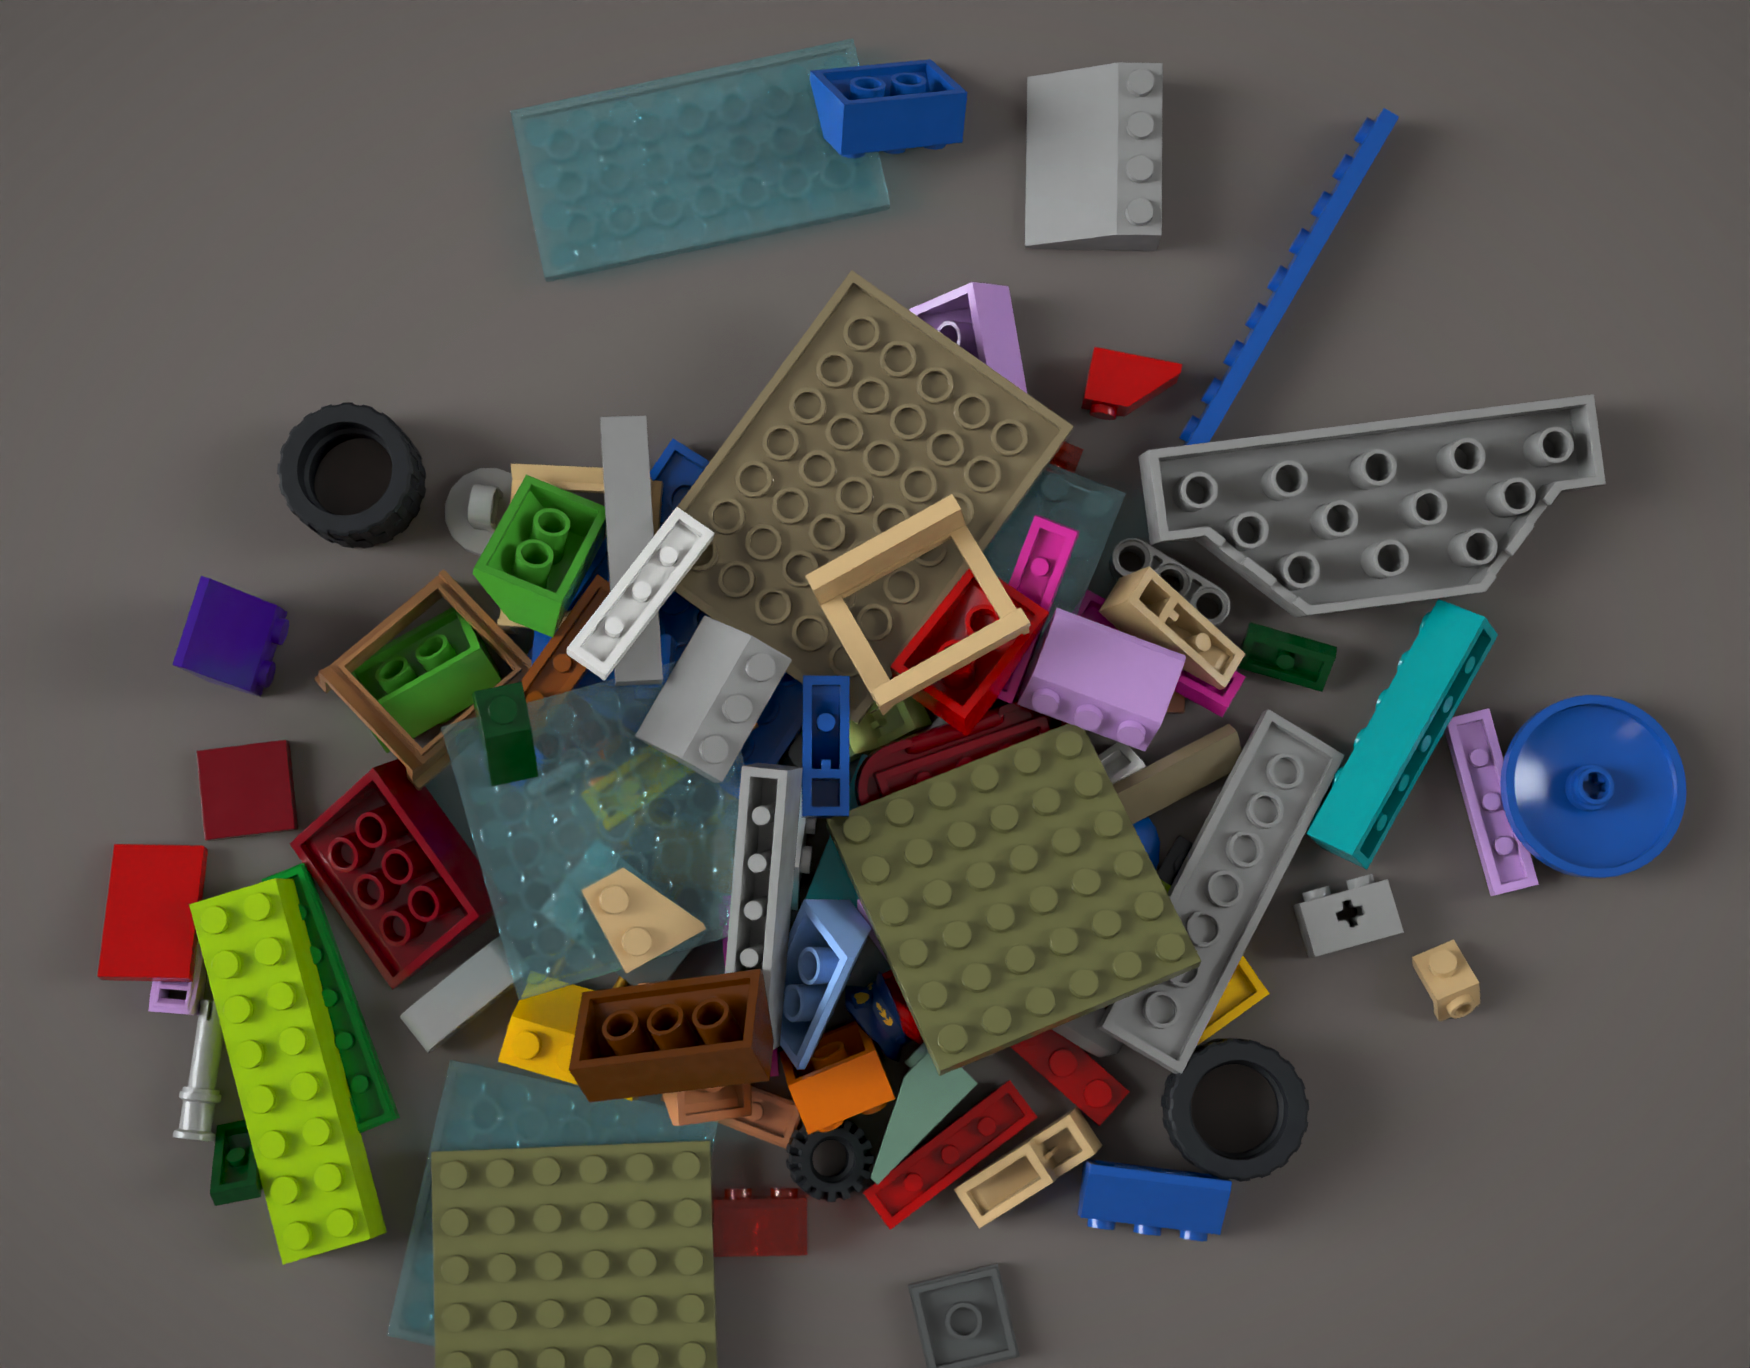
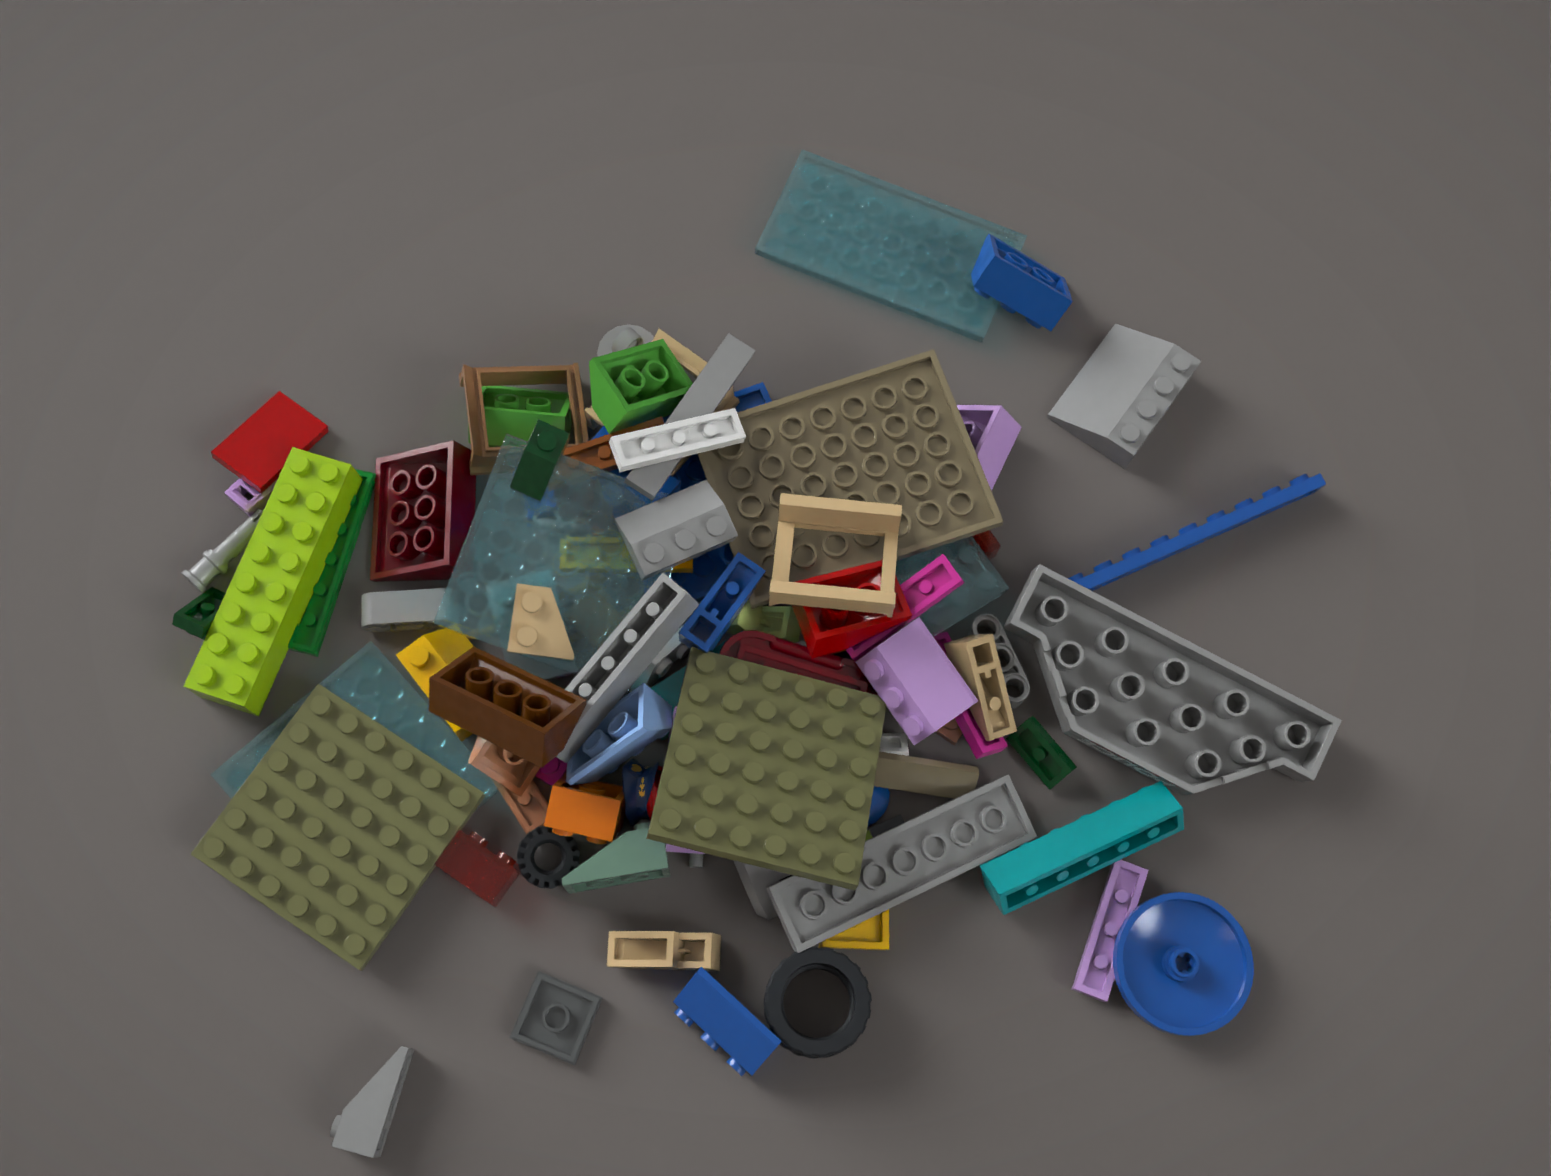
camera: 25 degrees right, 10 degrees down
(231, 638) = (429, 317): dark purple slope -> none
(247, 790) = (375, 413): dark red tile -> none
(321, 433) = (559, 248): black tyre -> none
(950, 1154) = (621, 908): red plate -> none
(1073, 1074) = (731, 906): red plate -> none
(1124, 382) = (1054, 527): red slope -> none
(1374, 909) = (985, 951): light grey brick -> none
(1448, 980) = (1007, 1022): tan bracket -> none

